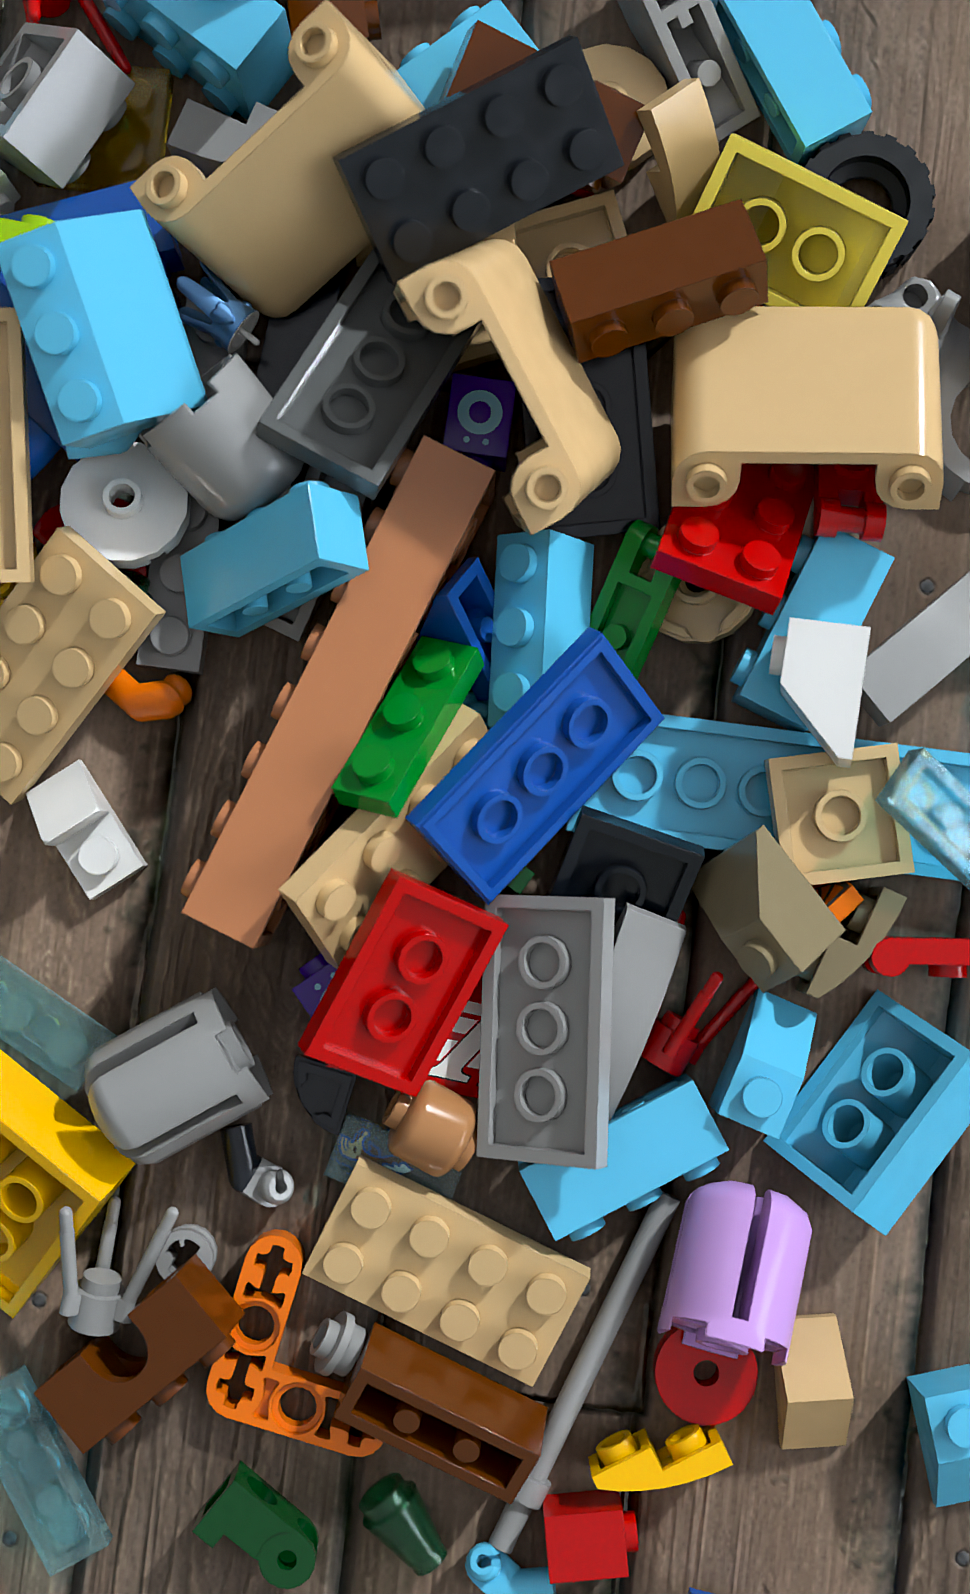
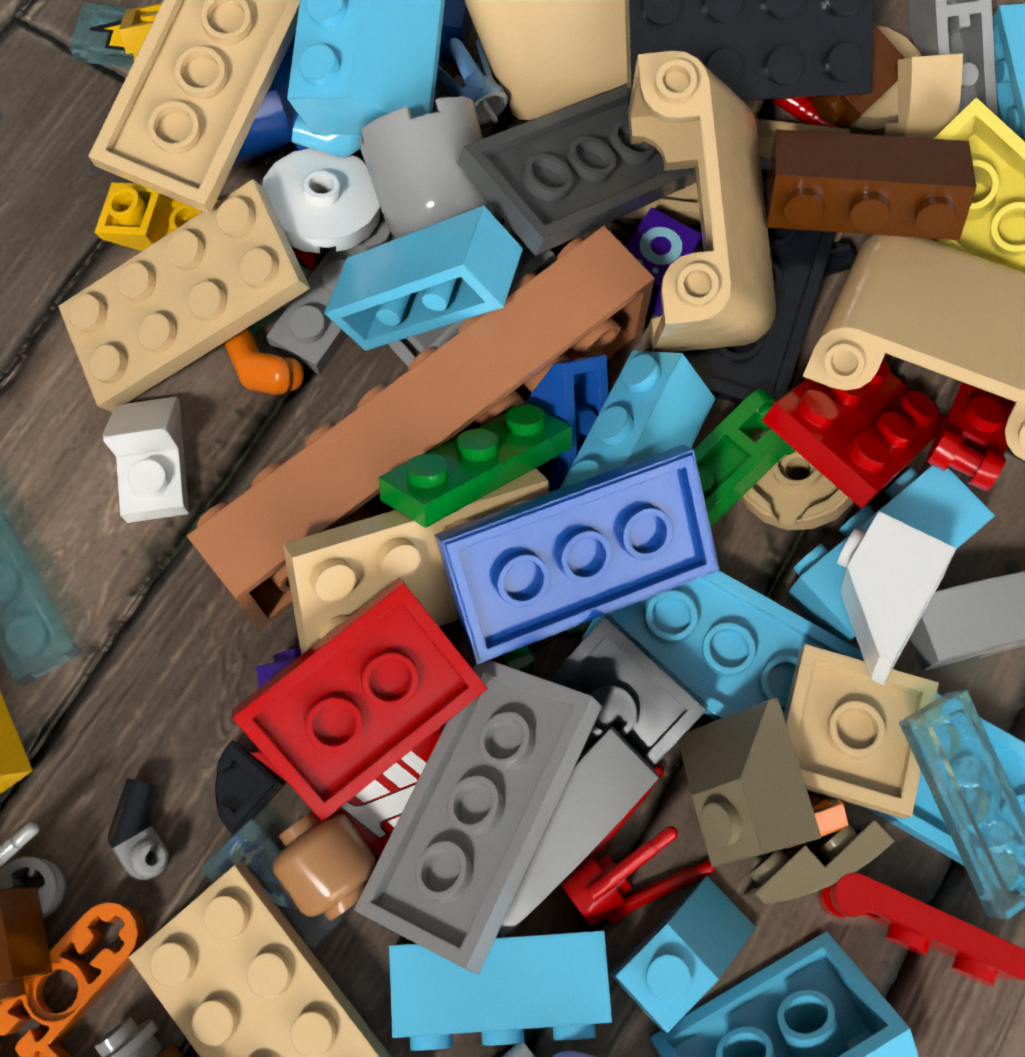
camera: 25 degrees right, 15 degrees down
(174, 1079) = (104, 703): light grey cylinder -> none

